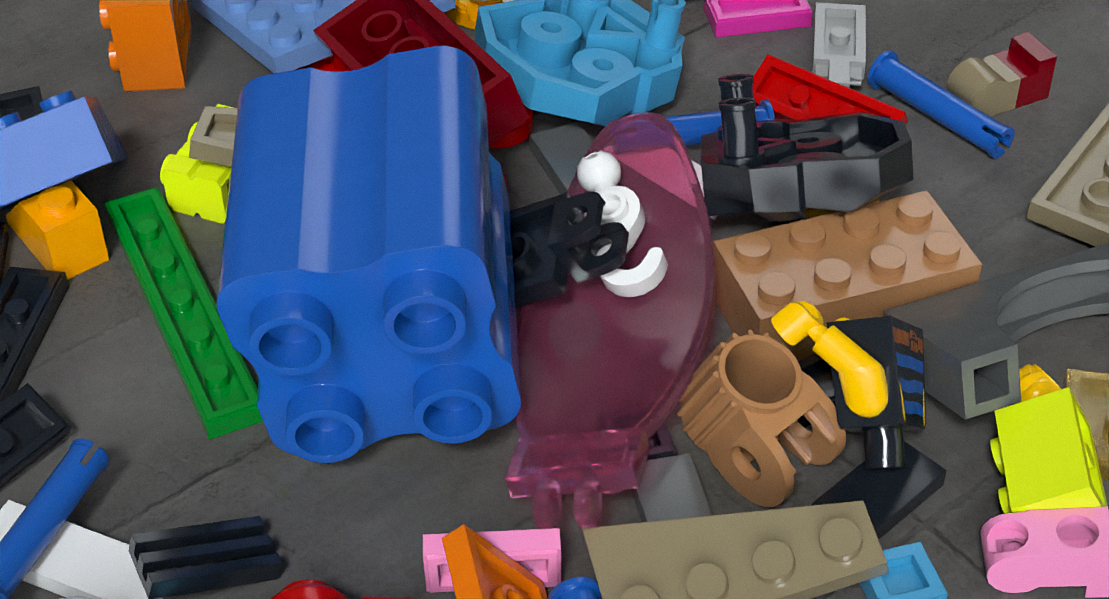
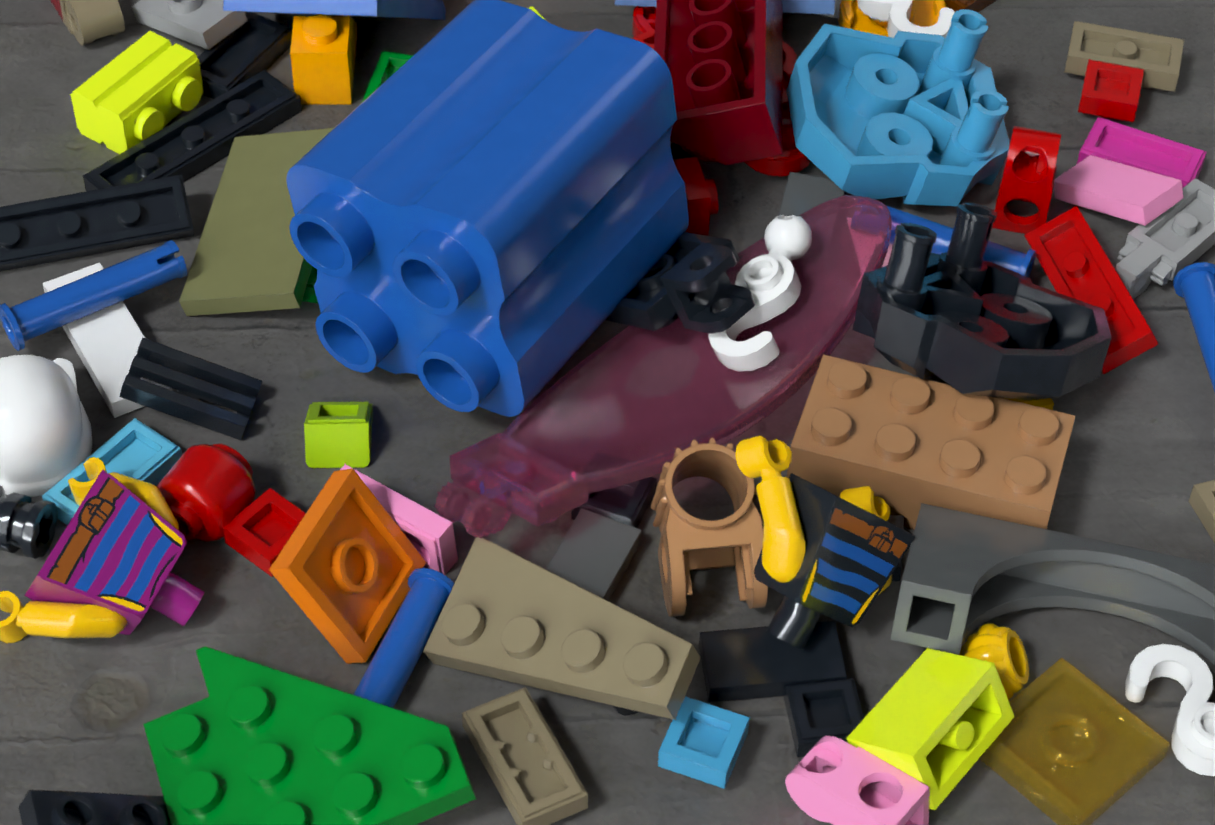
camera: 35 degrees right, 5 degrees up
(136, 387) = (246, 244): none -> olive tile
(364, 522) = (338, 434): none -> lime slope
(715, 48) = (1027, 177): none -> red leg
(773, 34) = (1118, 190): none -> bright pink tile
(954, 511) = (821, 711): none -> black tile

